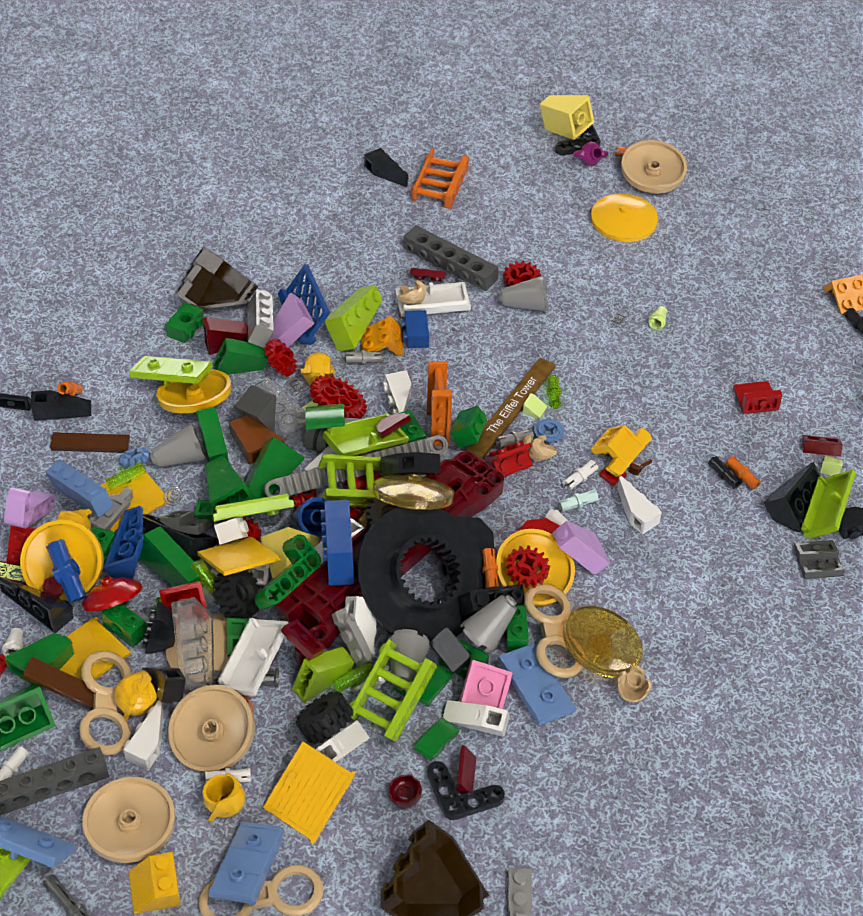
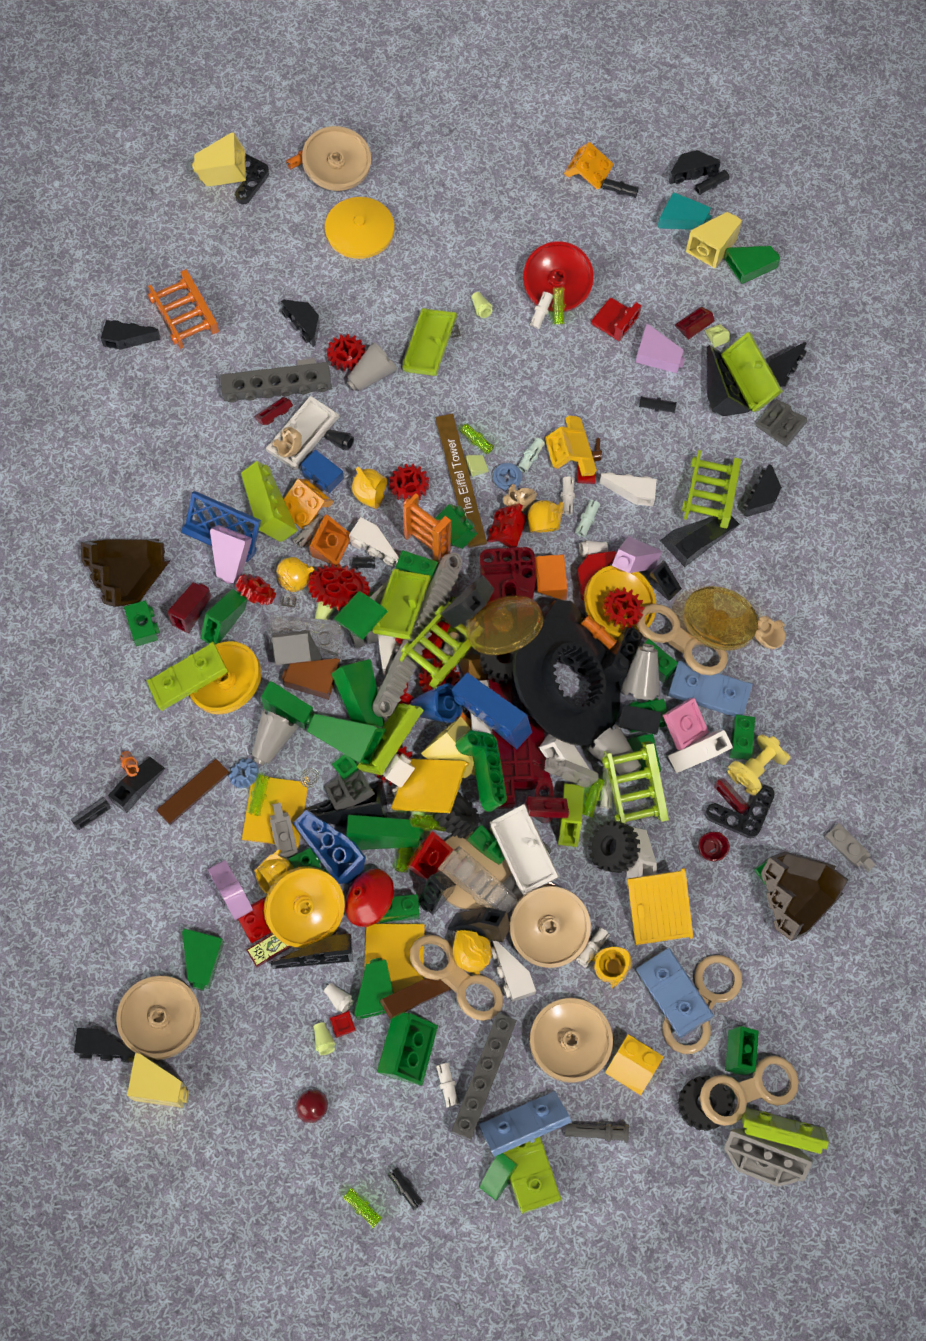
camera: 45 degrees left, 20 degrees up
(52, 586) = (318, 930): dark red tile -> none
(66, 571) = (321, 912): blue piece -> none
(79, 488) = (242, 838): medium blue brick -> none
(260, 318) = (203, 569): light grey brick -> none
(367, 369) = (329, 541): none -> orange slope
(373, 399) = (361, 562): none -> black pin
(392, 423) = (407, 576): tile -> none
(436, 352) = (369, 487): none -> yellow helmet
(436, 738) = (690, 790): green slope -> none
(454, 322) = (341, 439): none -> black cone
(469, 380) = (407, 475): none -> red gear
(501, 511) = (551, 576): none -> orange slope
(502, 762) = (754, 768): none -> light yellow piece
(512, 437) = (492, 505): light grey pin -> none
(515, 239) = (302, 318): none -> black slope
(522, 737) = (742, 737): none -> green brick
(542, 470) = (545, 516): none -> yellow helmet
(571, 433) = (531, 455): none -> light aqua pin
(588, 583) = (664, 581): none -> black slope
(590, 153) = (274, 184): magenta piece -> none
(590, 310) = (429, 341): none -> lime container
(650, 580) = (696, 538): none -> black wedge
(700, 350) = (541, 310): none -> white pin
(704, 570) = (725, 499): none -> lime fence
(717, 354) = (558, 296): none -> clear neon green pin
(738, 338) = (557, 266): none -> red dish
(742, 592) = (764, 493): none -> black slope
(743, 472) = (669, 394): orange pin -> none
(766, 439) = (659, 351): none -> lavender slope

